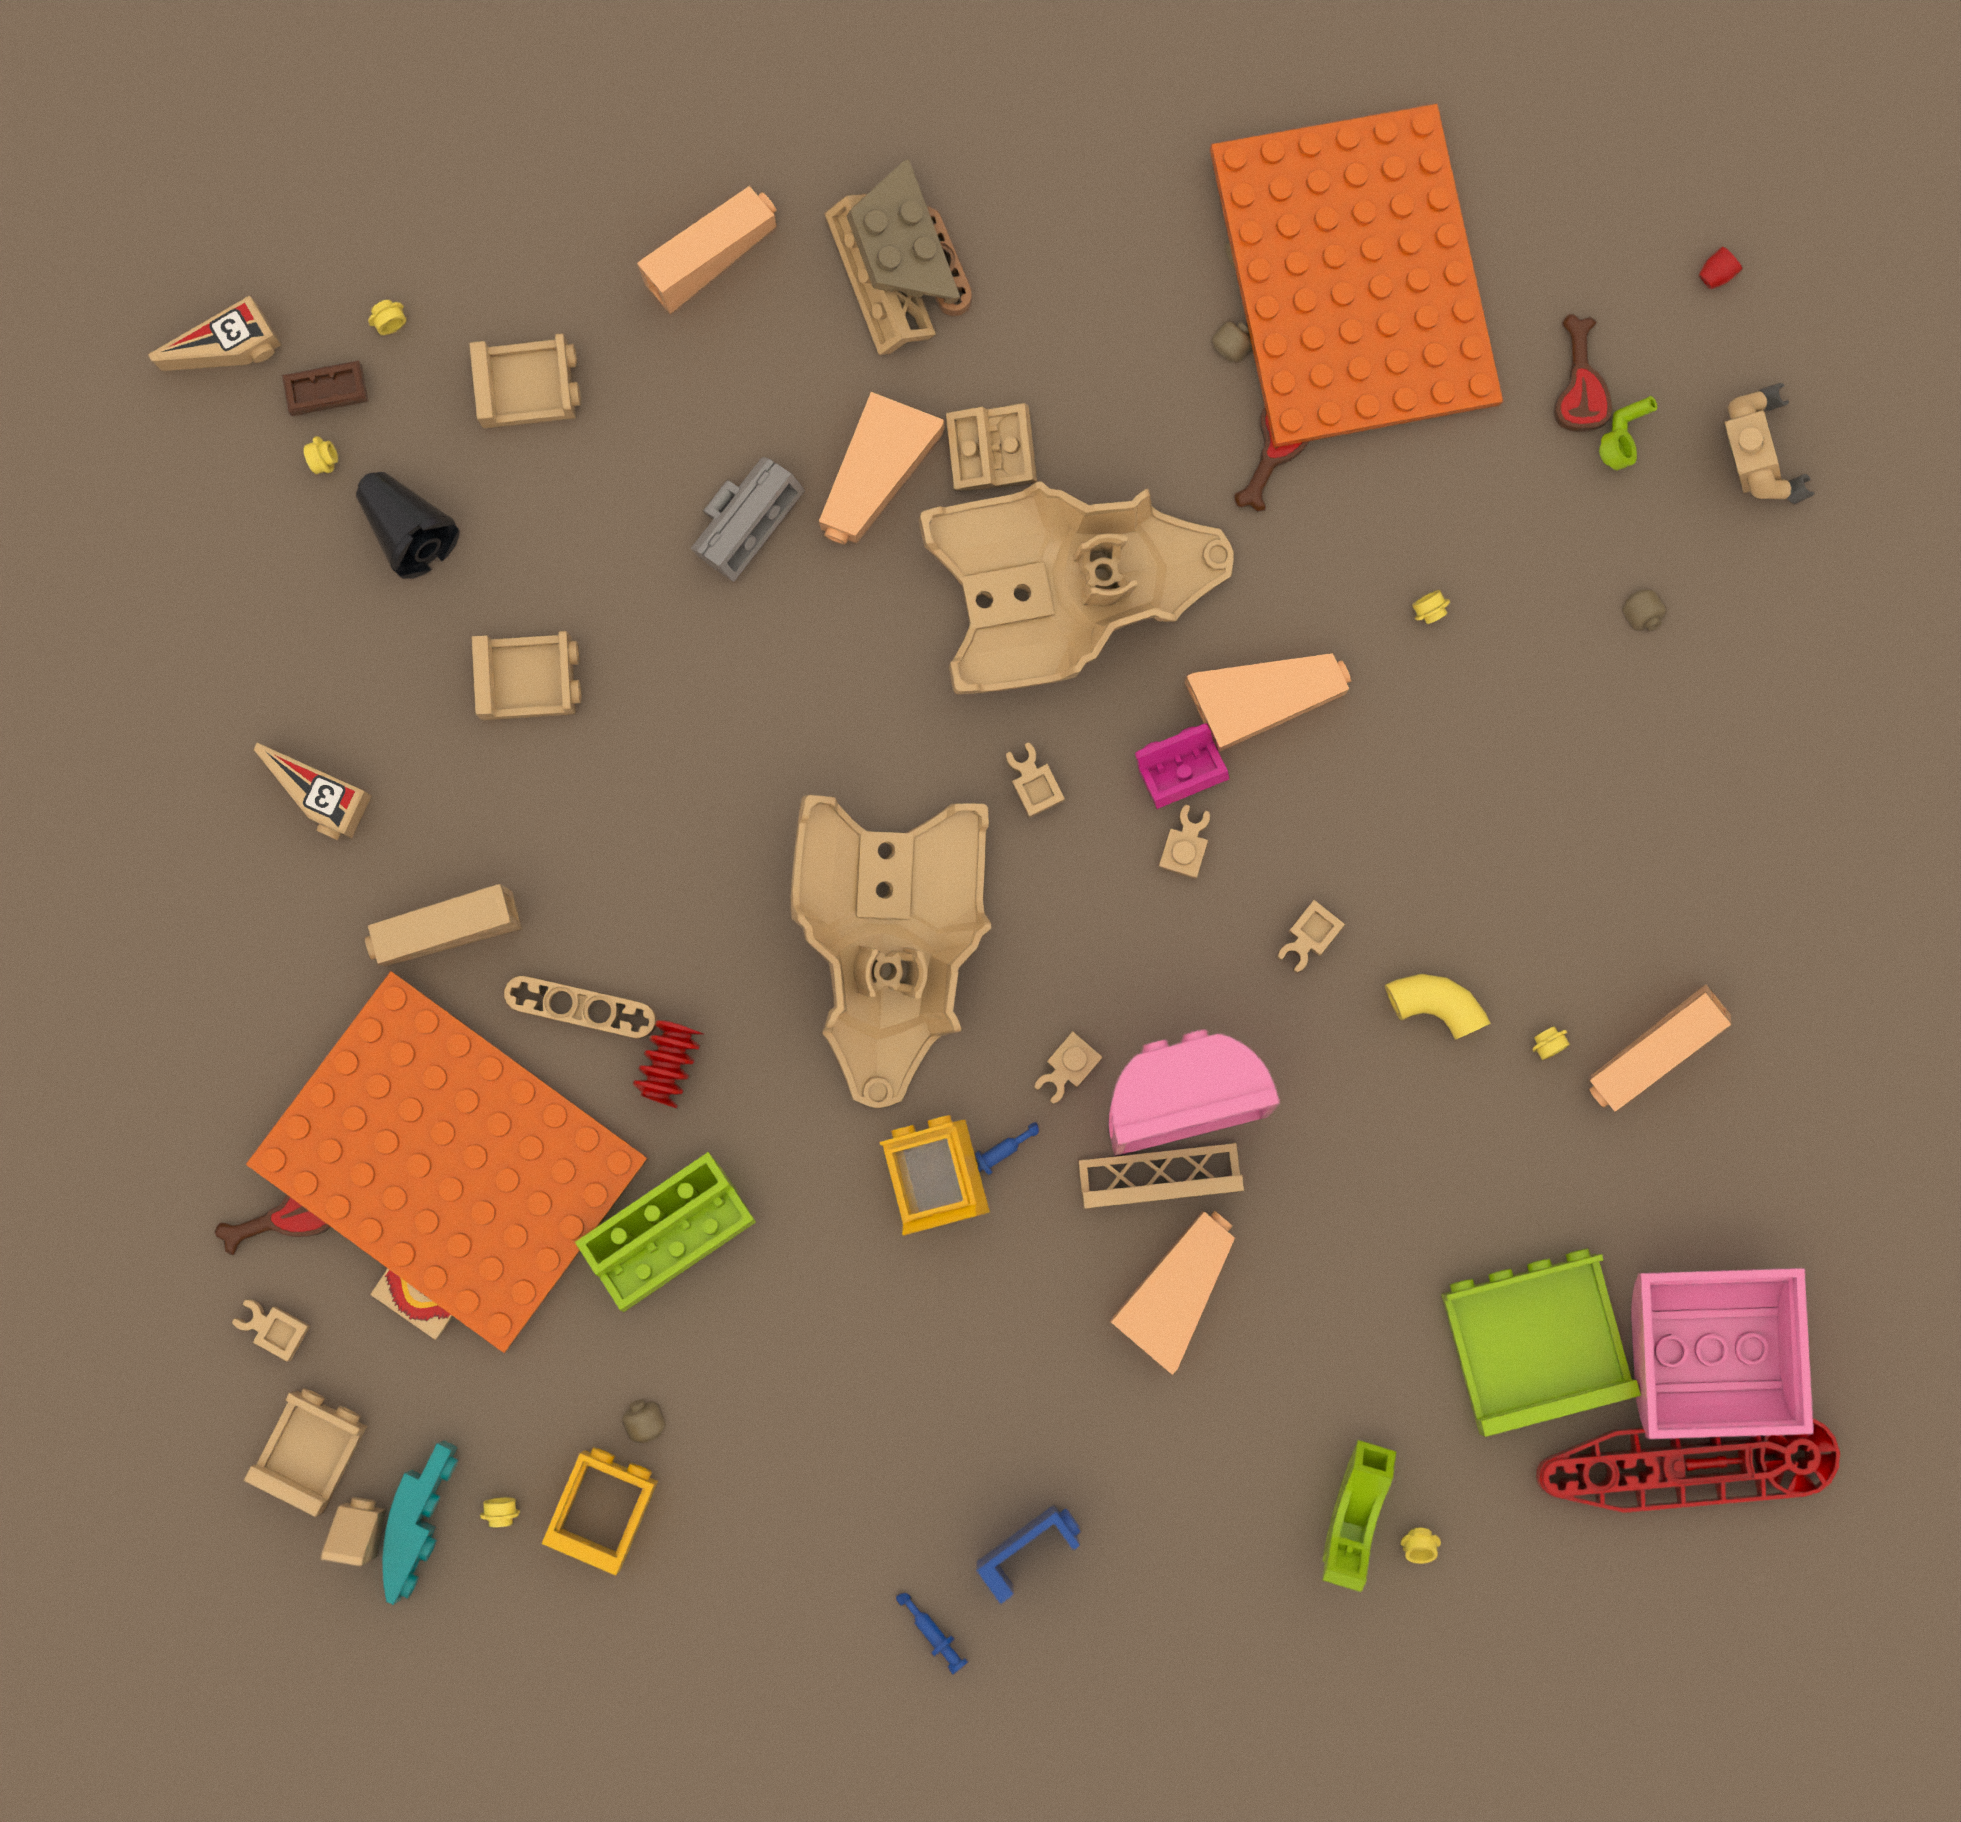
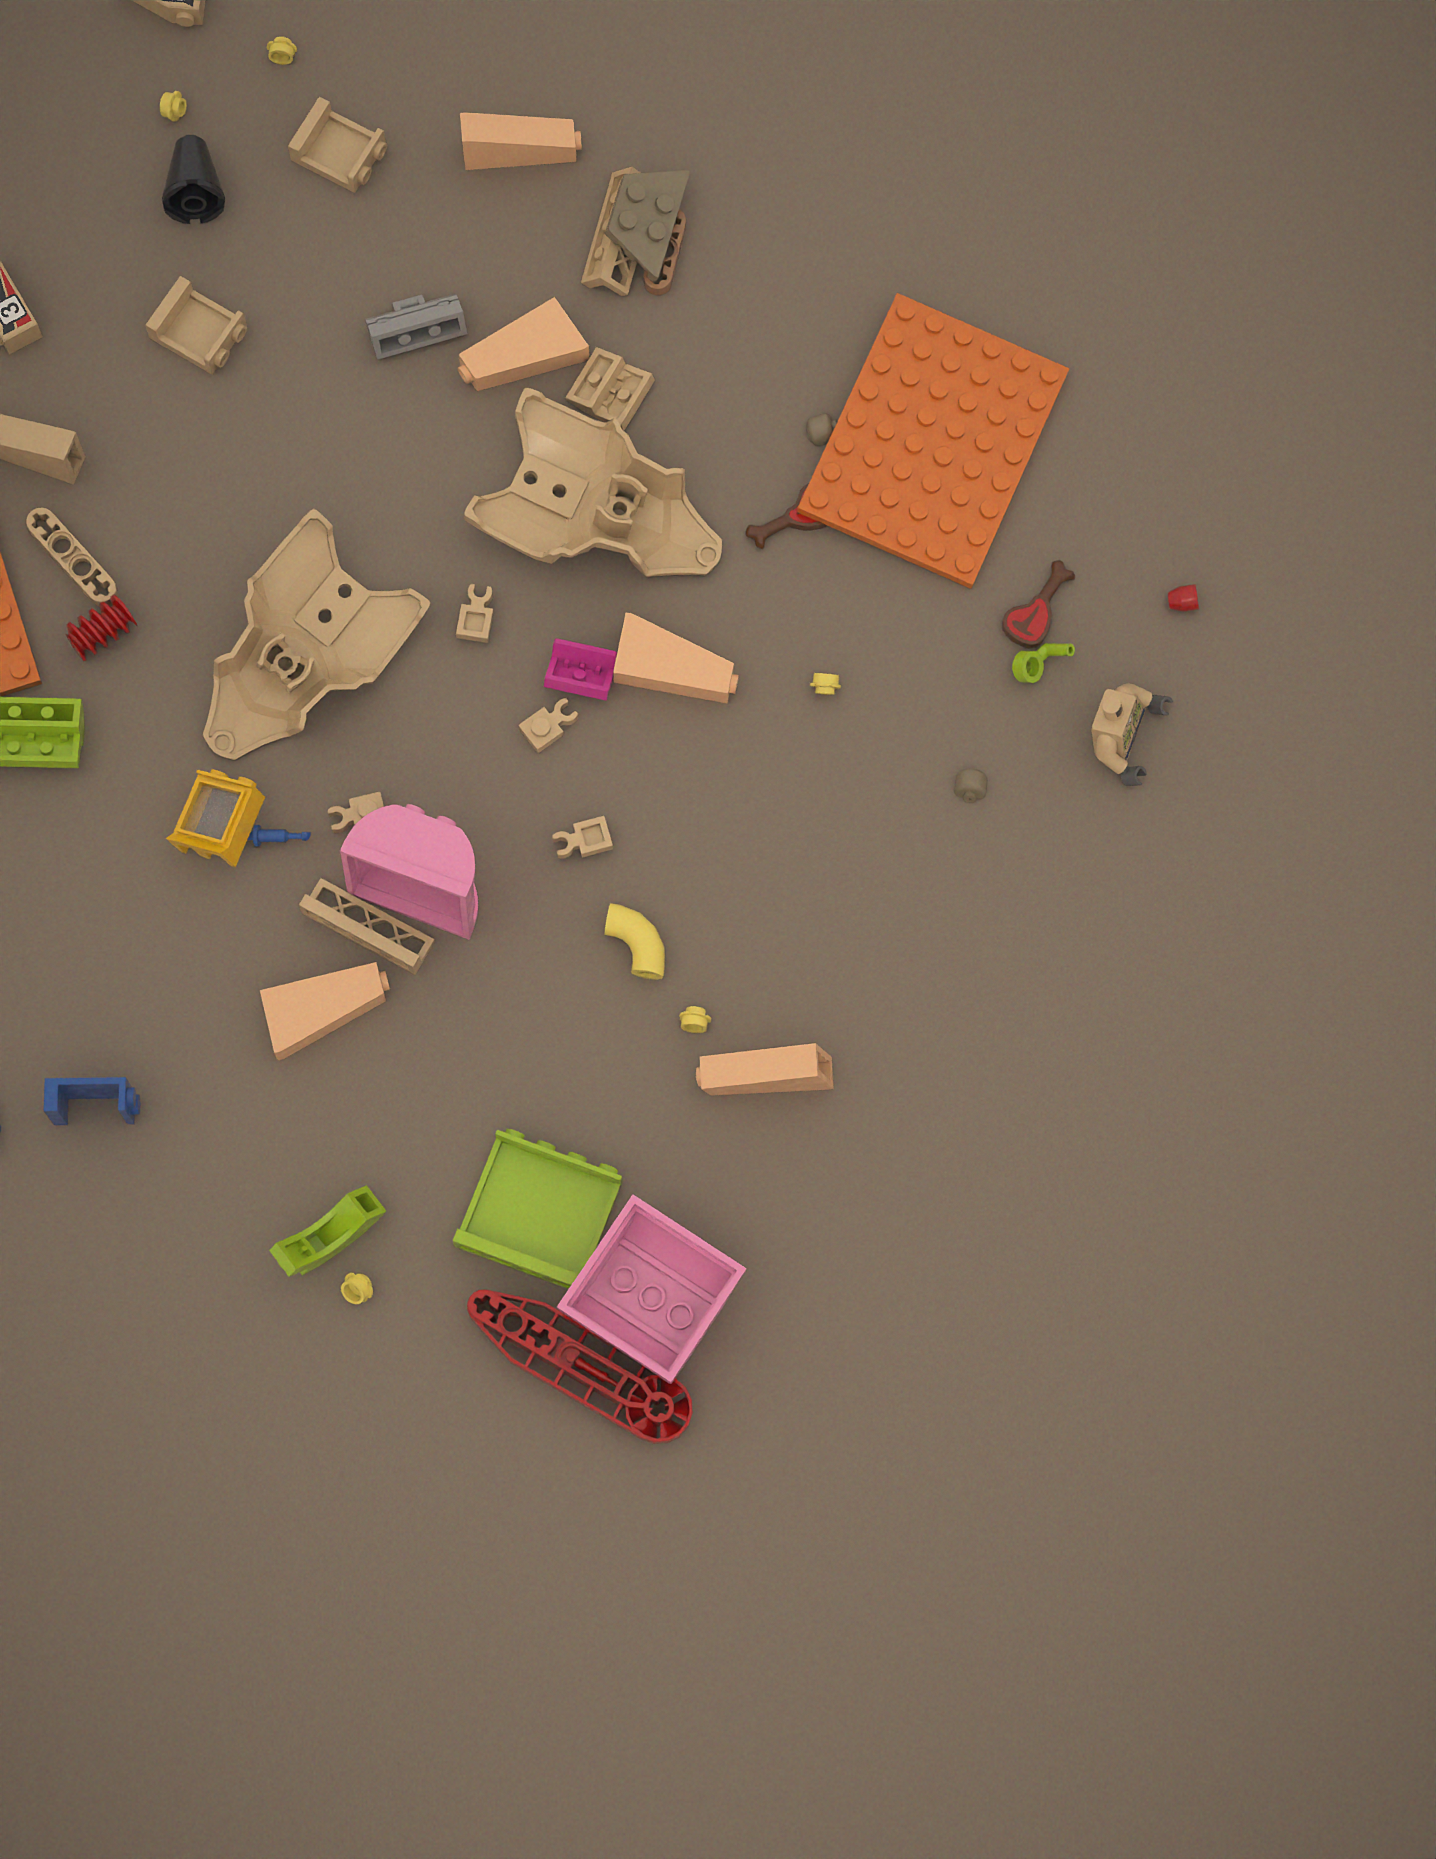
camera: 30 degrees right, 10 degrees down
(325, 388) = (208, 67): reddish brown plate -> none

